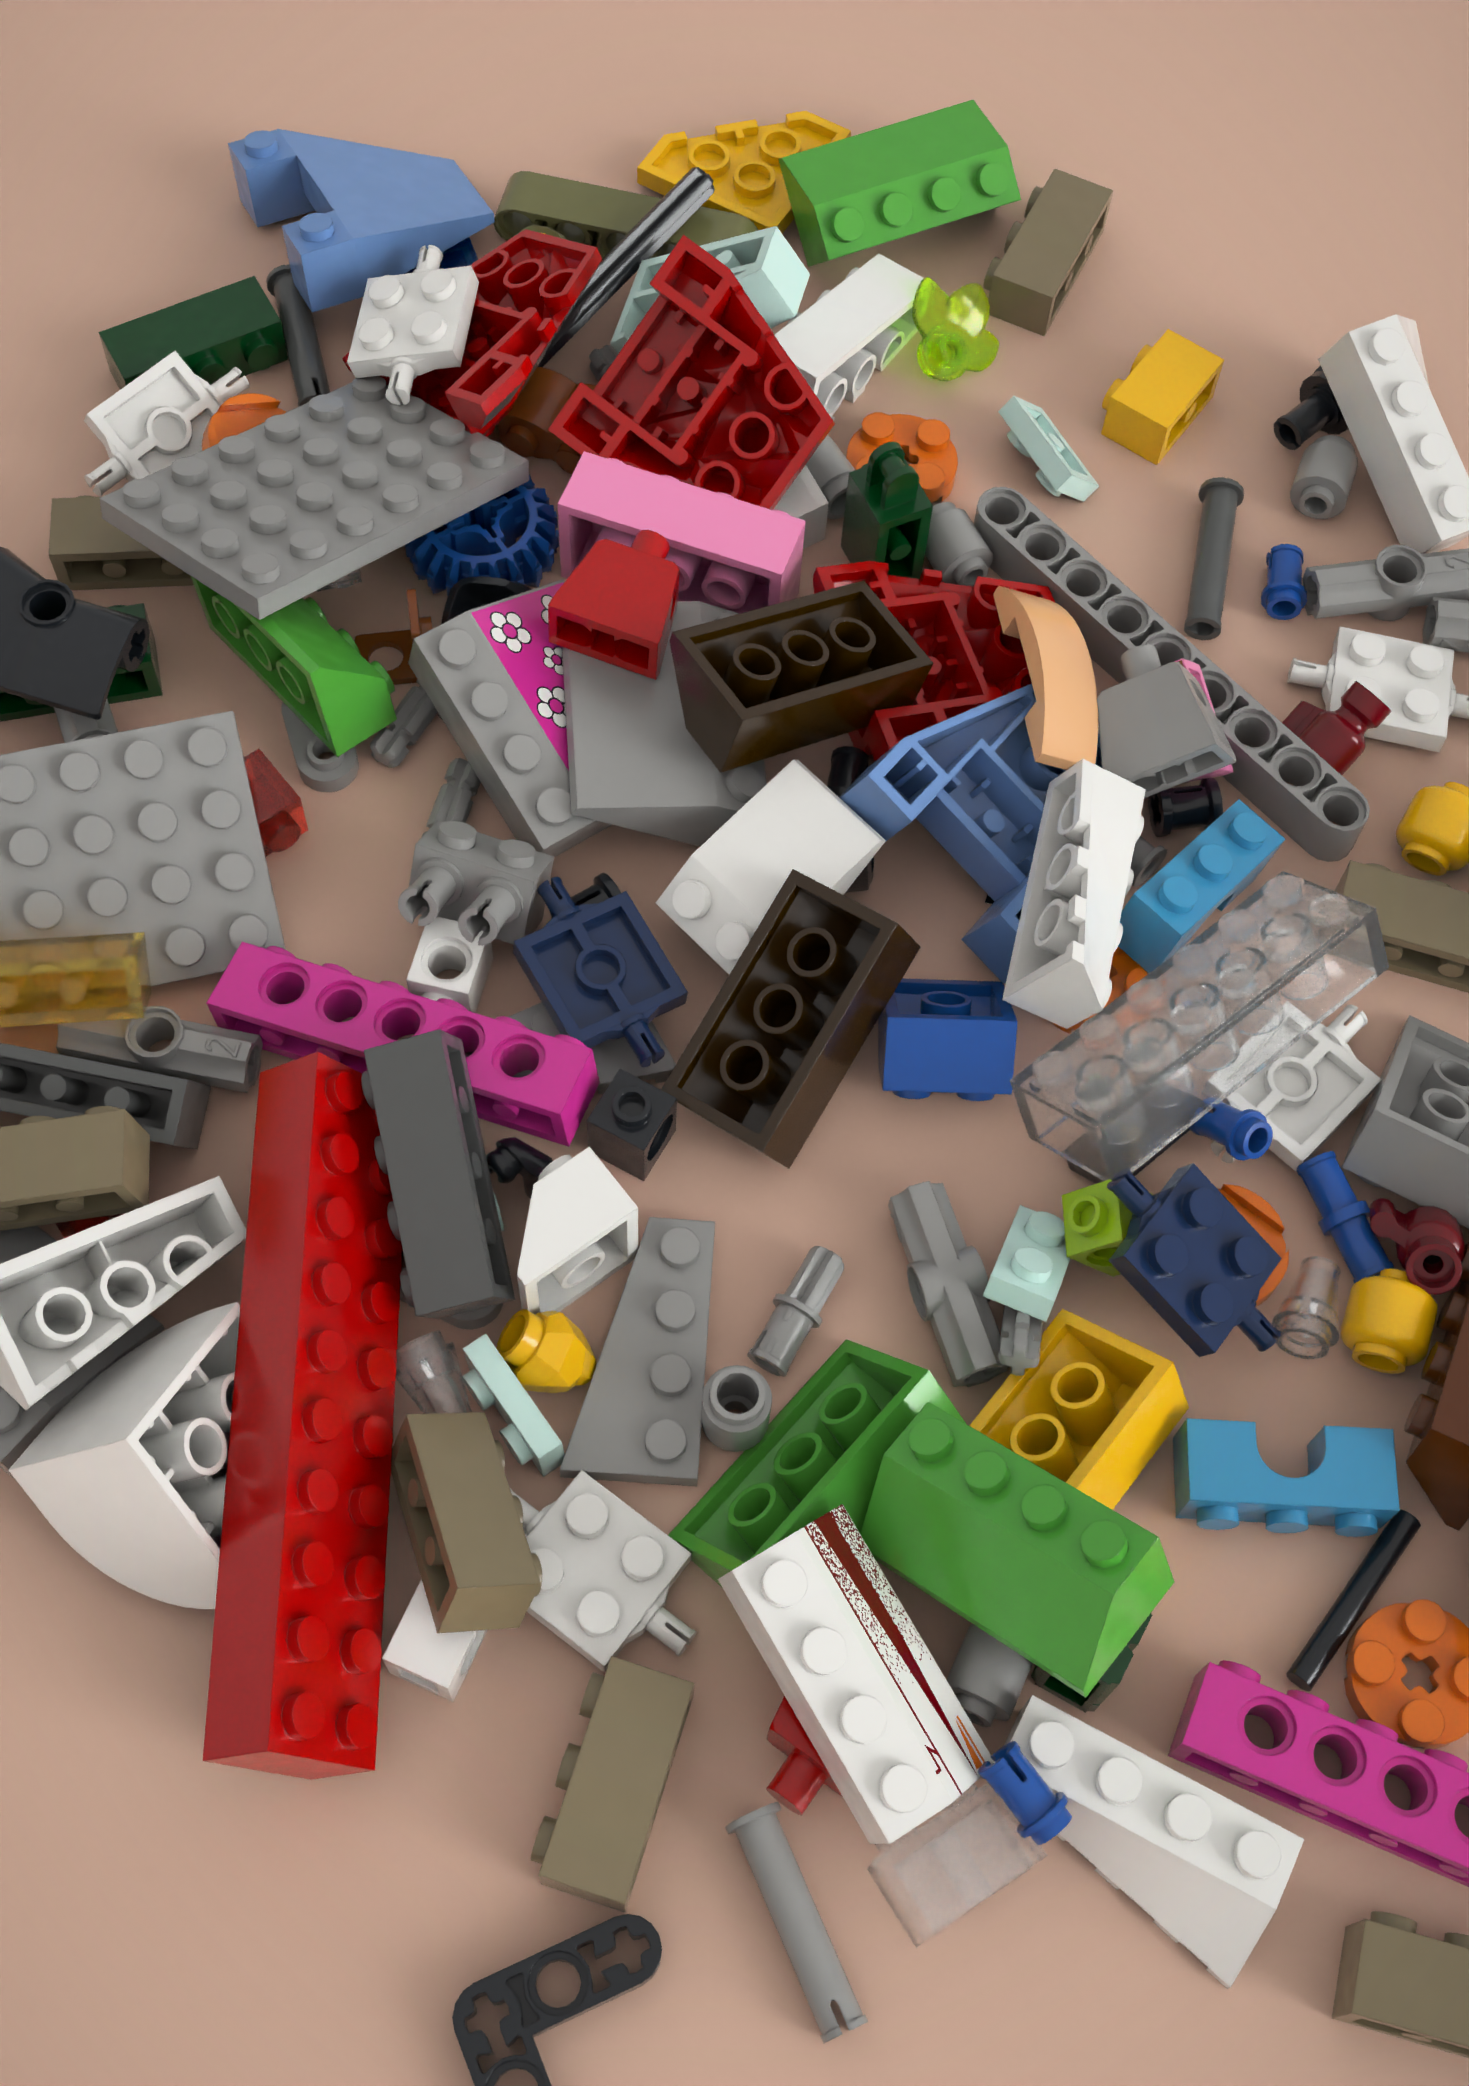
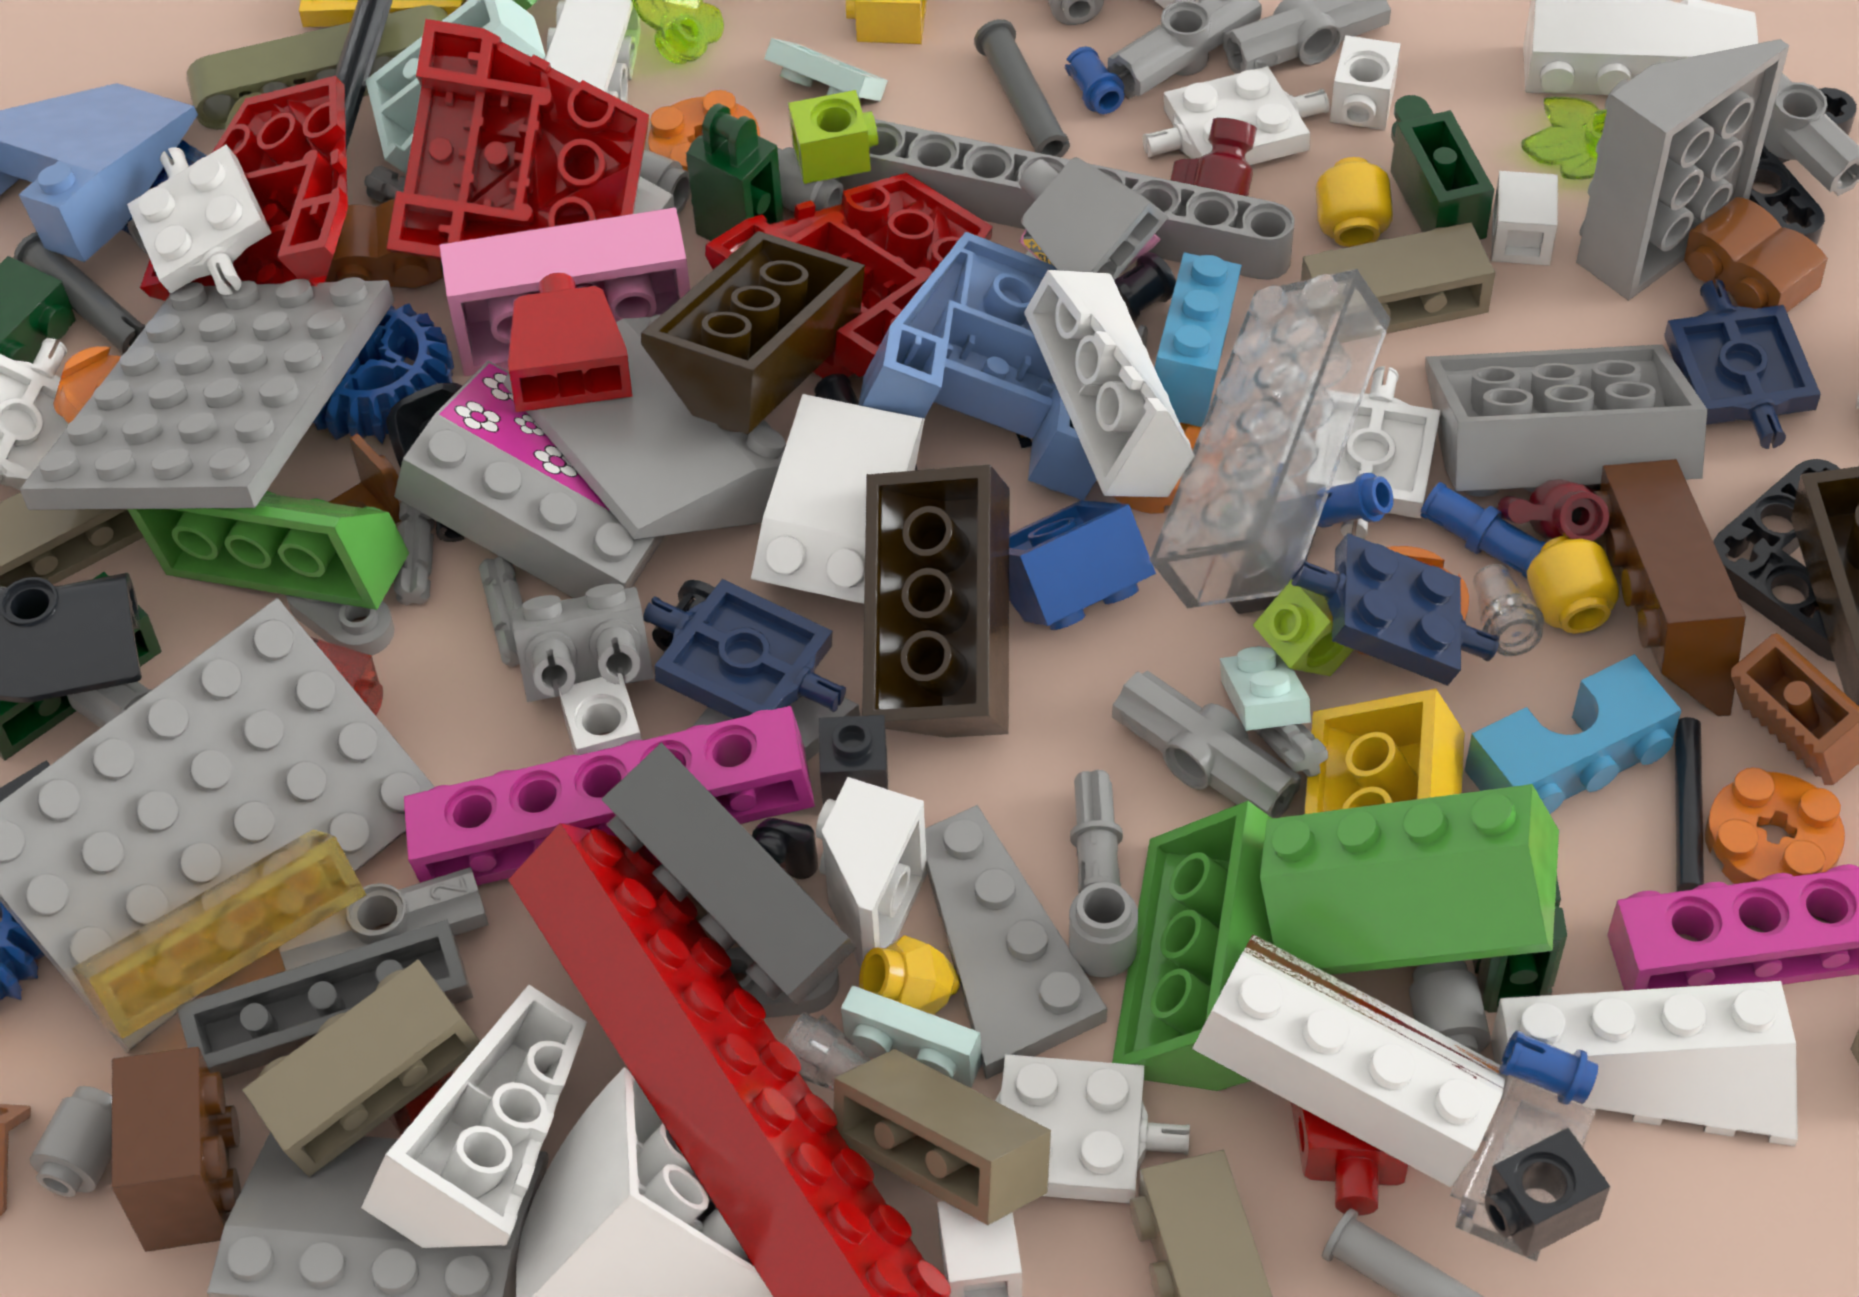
camera: 25 degrees left, 10 degrees down
(969, 1907) = (1554, 1166): none -> black brick
(994, 520) = (831, 136): none -> lime brick
(1065, 713) = (1003, 247): light nougat slope -> none

